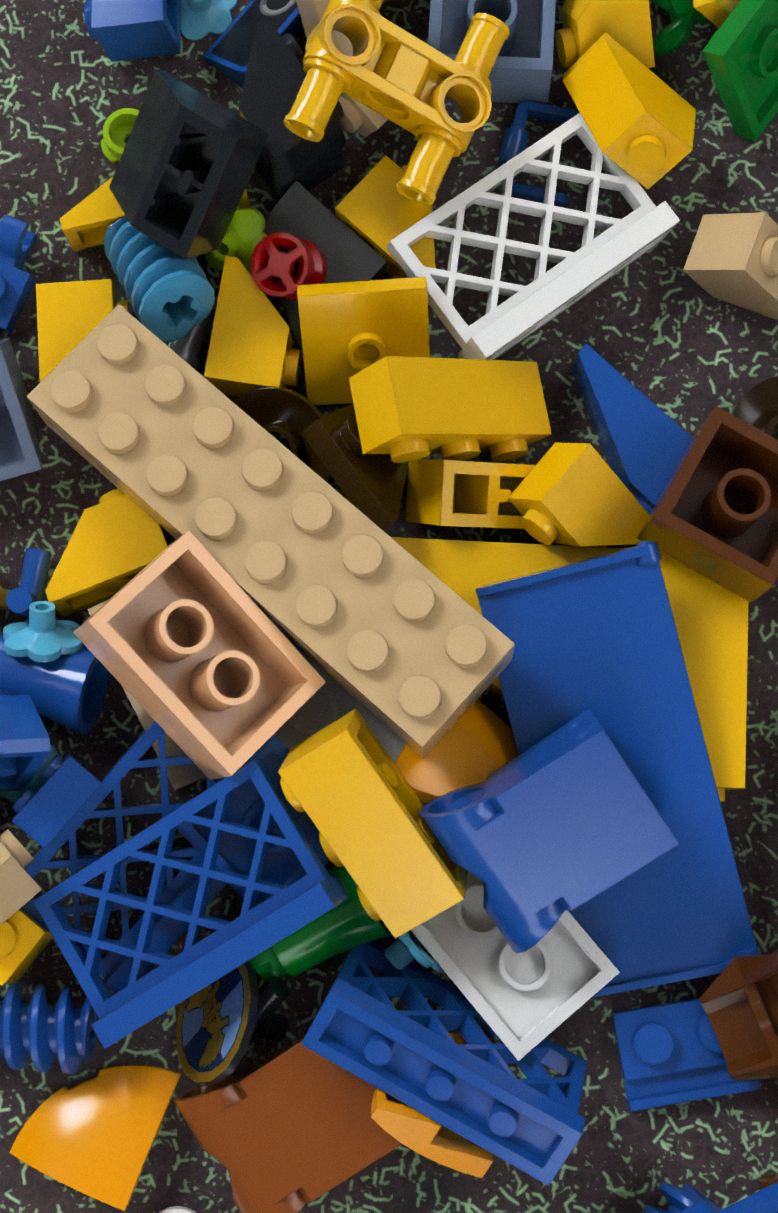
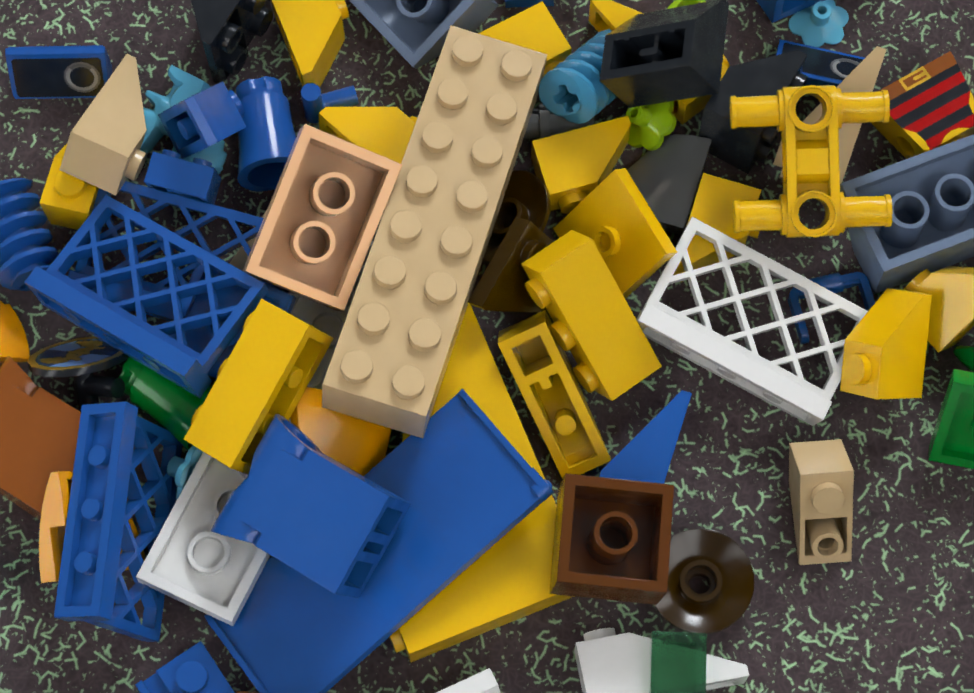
camera: 65 degrees right, 10 degrees down
(41, 635) = (290, 116): medium azure plant -> none
(275, 260) = (646, 150): red wheel -> none
(577, 500) = (564, 433): yellow slope -> none

